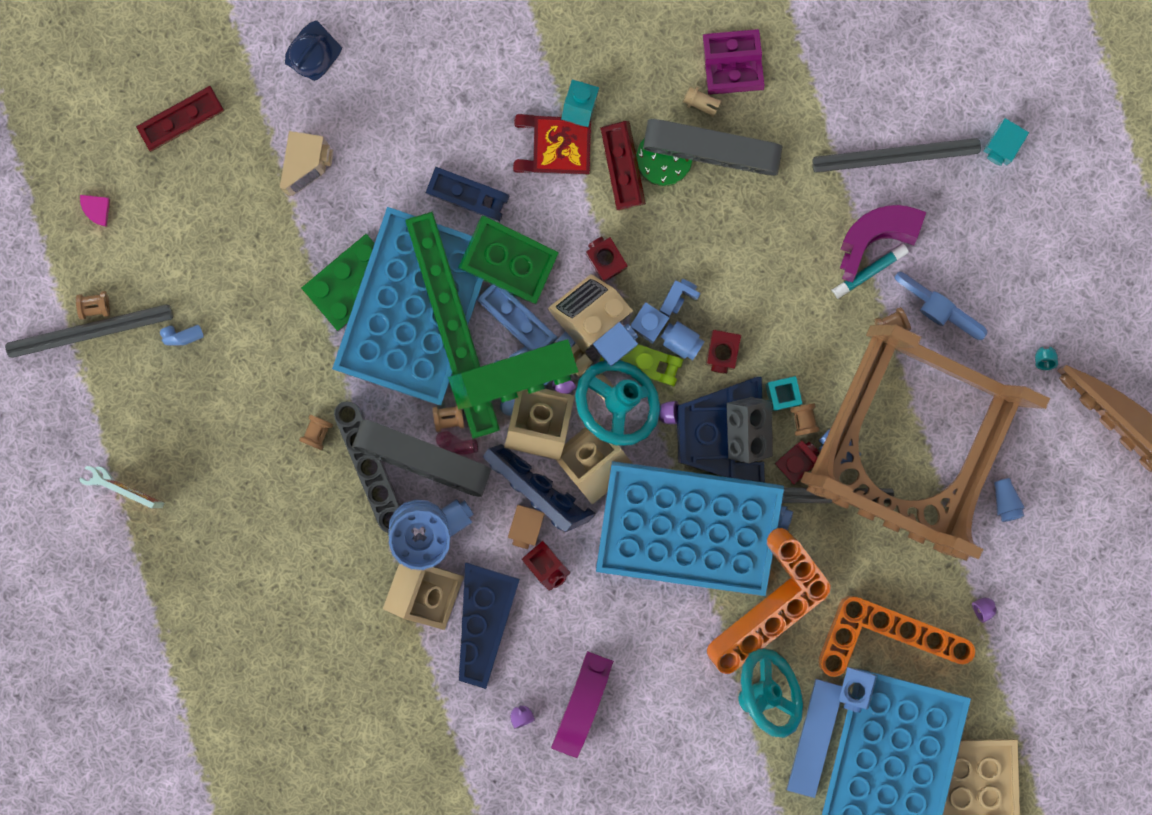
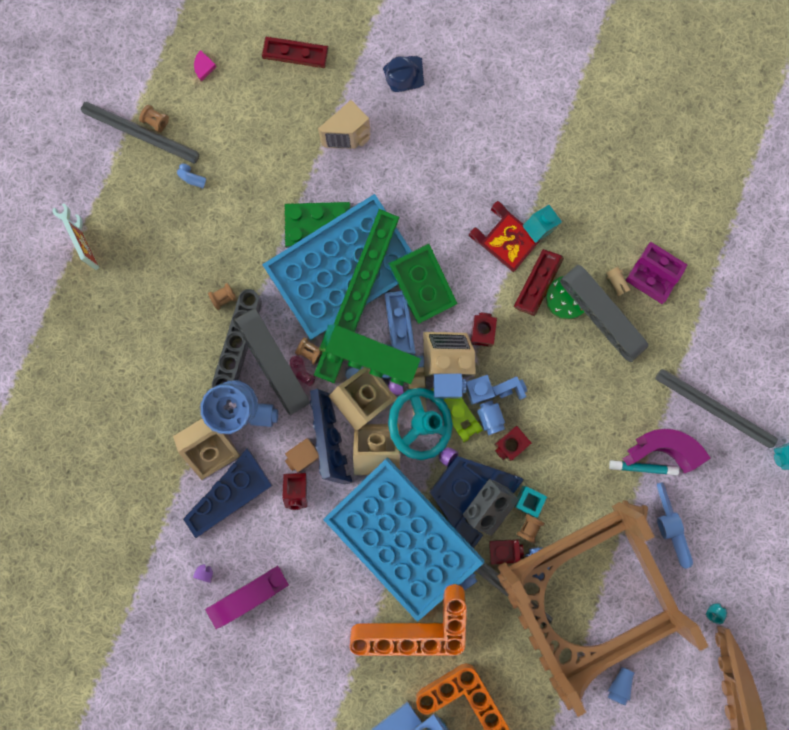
camera: 40 degrees right, 5 degrees down
(466, 193) = (429, 224): dark blue plate -> none
(768, 694) = (368, 688): teal piece -> none

